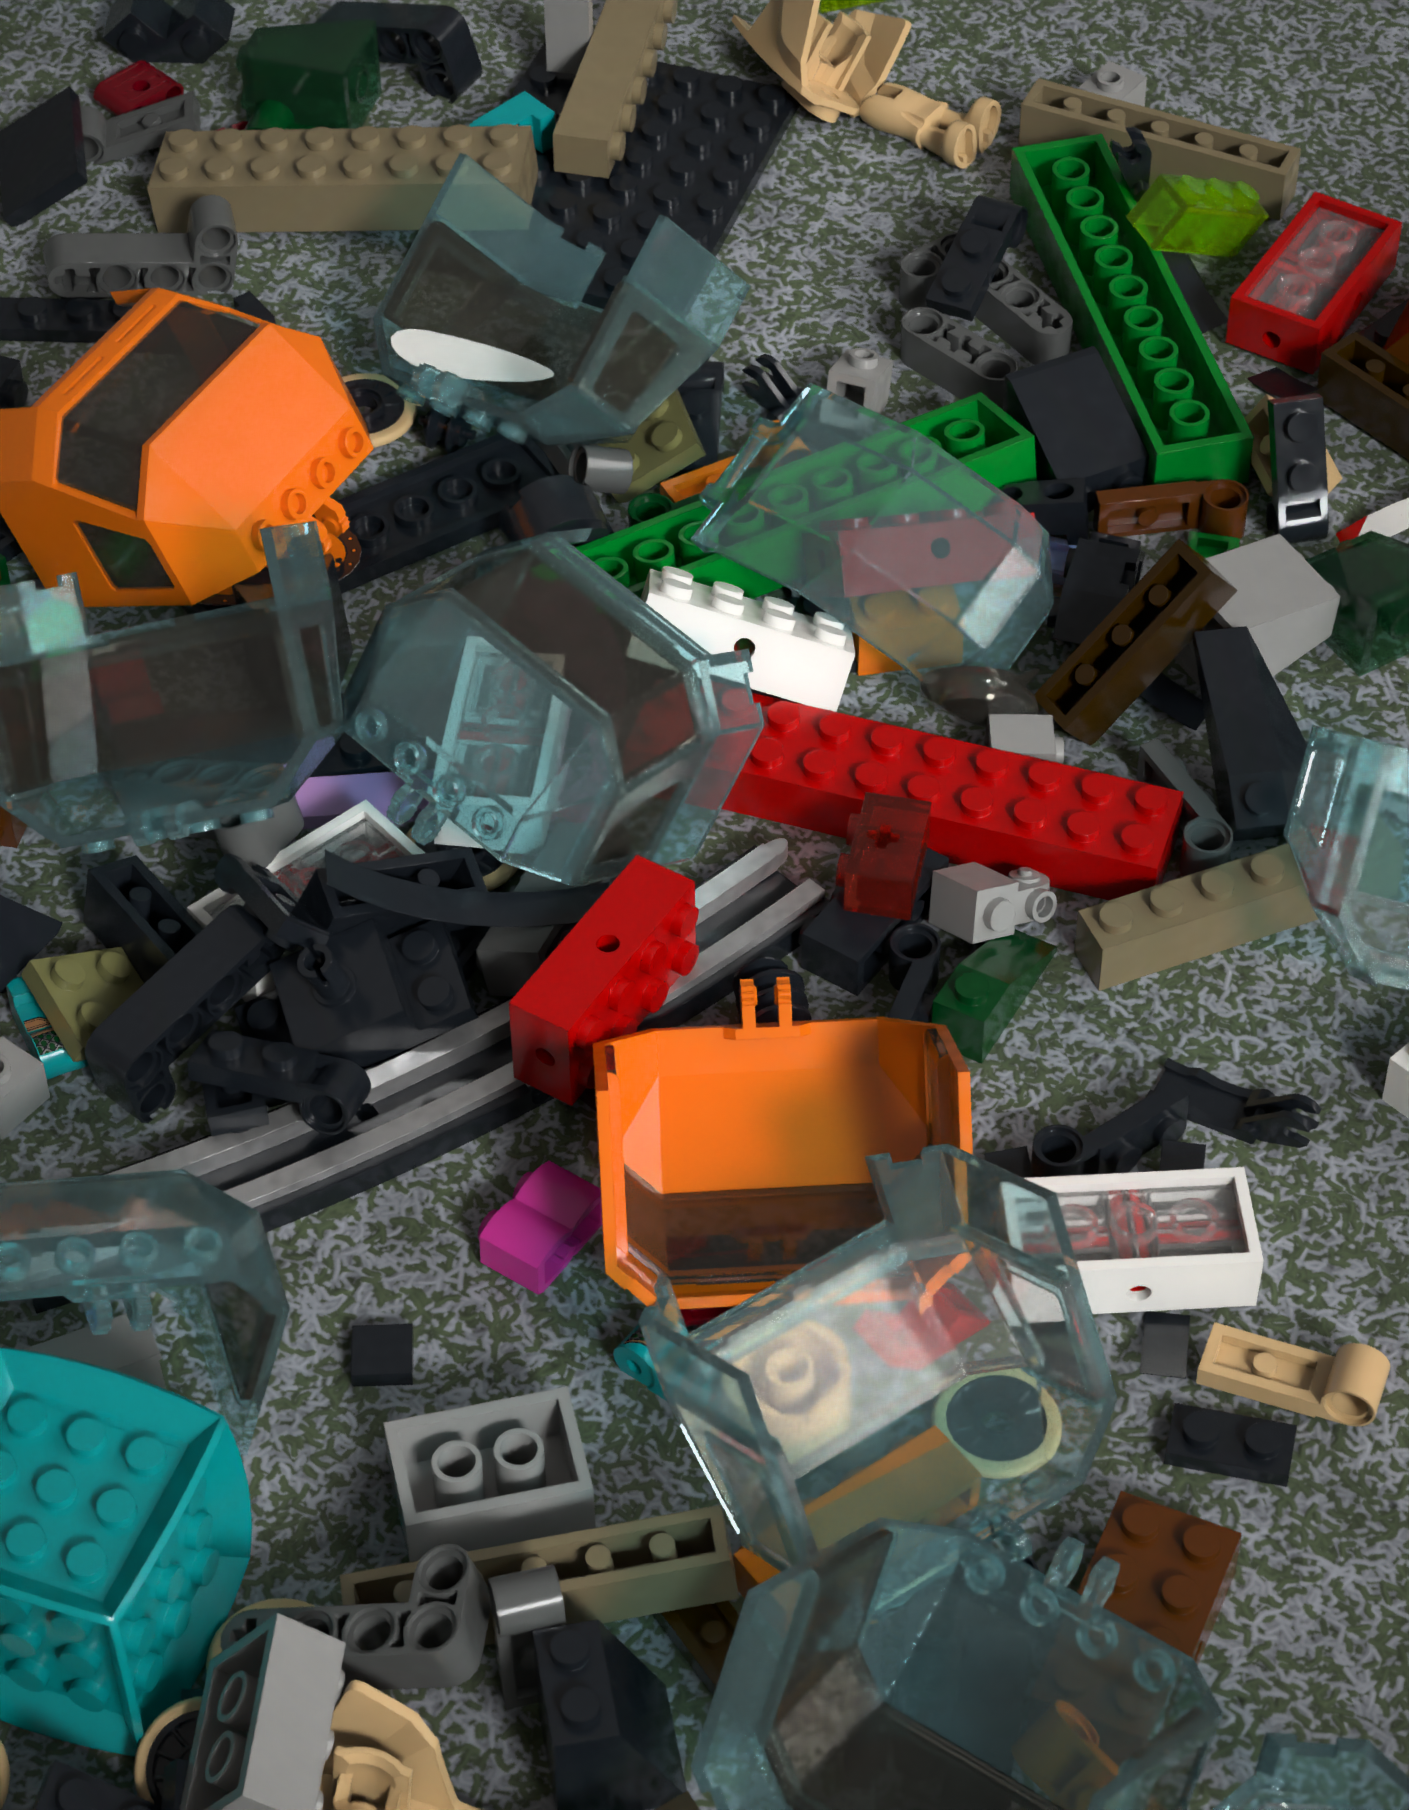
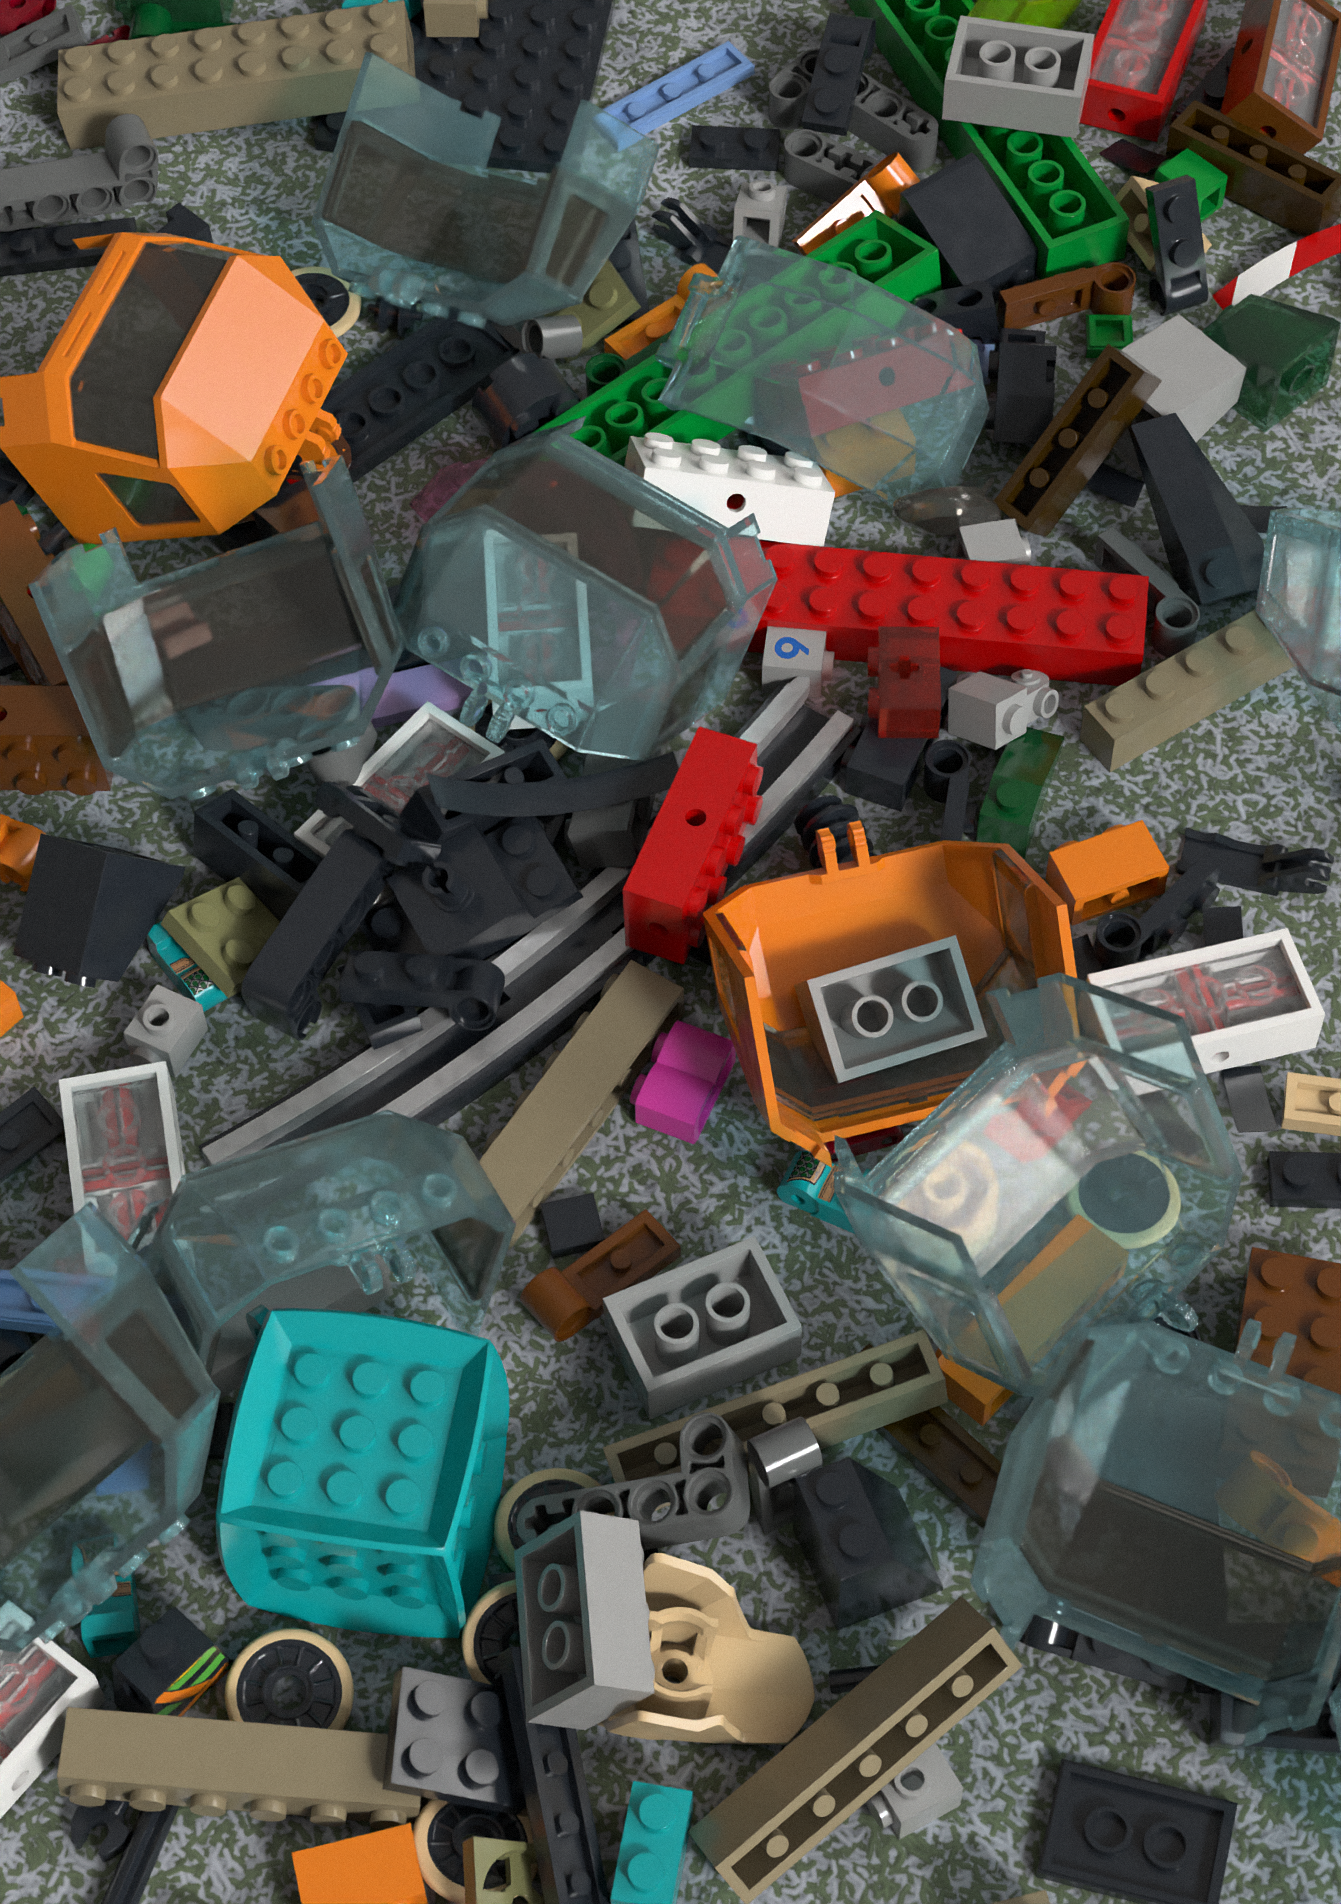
camera: 10 degrees left, 10 degrees up
(352, 1427) = (574, 1297): none -> reddish brown plate
(413, 1226) = (579, 1089): none -> dark tan brick
(465, 357) = (402, 246): white sticker -> none
(780, 815) = (795, 654): none -> light grey brick
(782, 1180) = (891, 1009): none -> light grey slope
(813, 257) = (683, 88): none -> medium blue tile
(852, 320) = (734, 148): none -> black plate
(981, 374) = (875, 191): none -> orange plate
(1064, 1085) = (1107, 871): none -> orange brick
(1161, 278) = (1017, 76): none -> light grey brick
(1346, 420) = (1209, 180): none -> green brick

